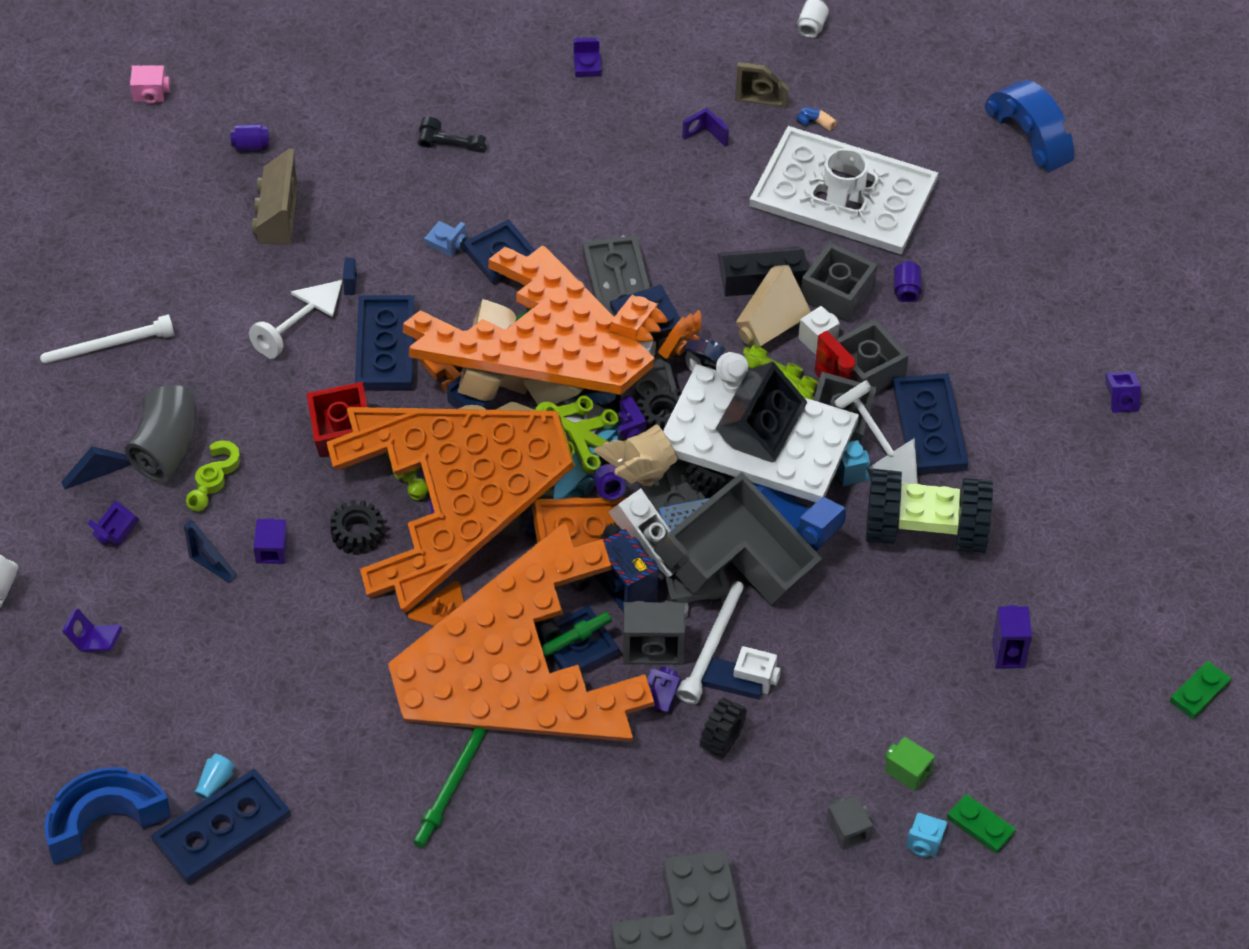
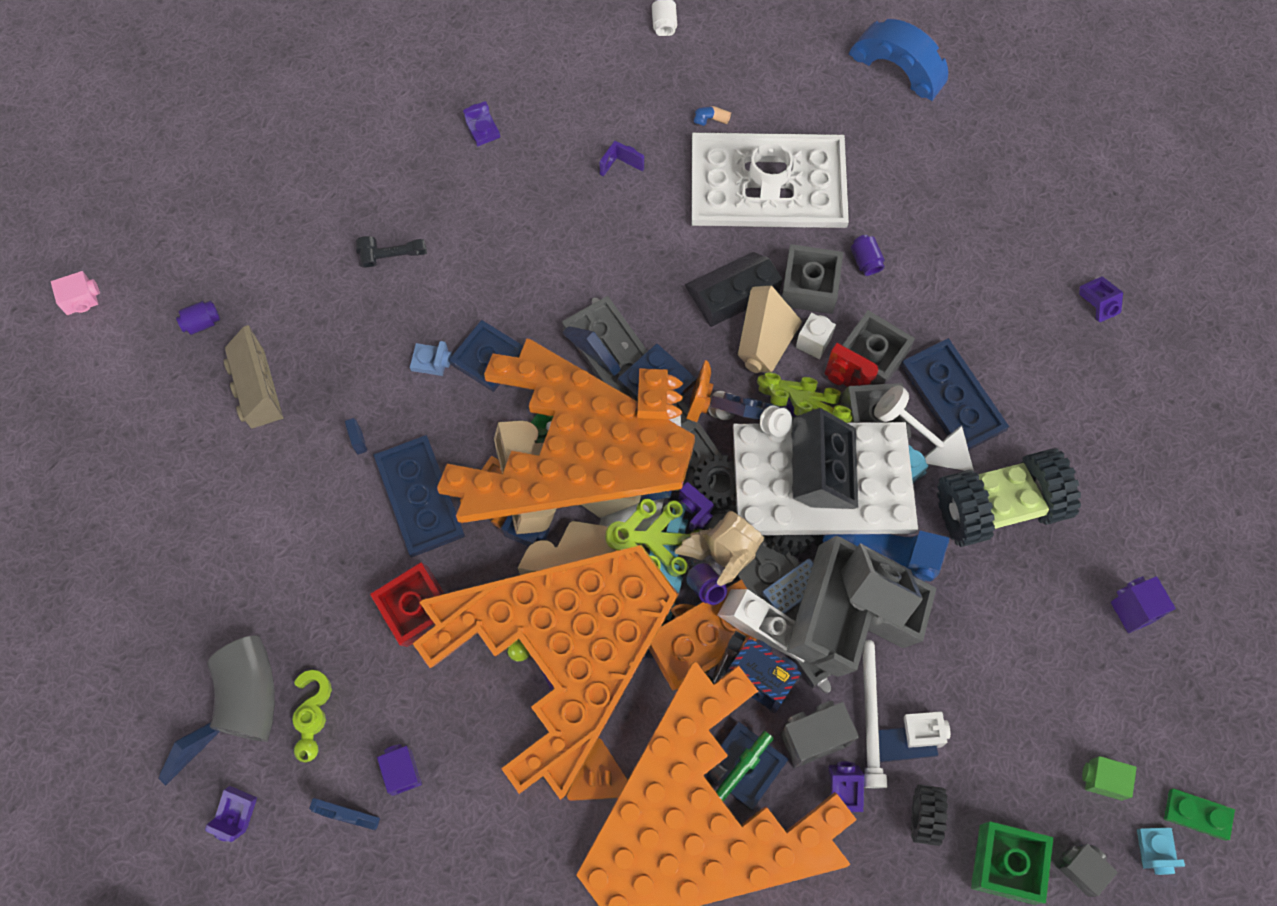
camera: 20 degrees left, 15 degrees up
(161, 327) = (193, 560): white piece -> none
(268, 339) = (335, 467): white piece -> none
(357, 513) = (464, 706): black tyre -> none
(599, 268) = (593, 347): none -> dark blue tile
(760, 86) = (650, 100): dark tan slope -> none
(760, 522) = (880, 586): none -> dark grey brick
(780, 789) = (1012, 863): none -> green brick

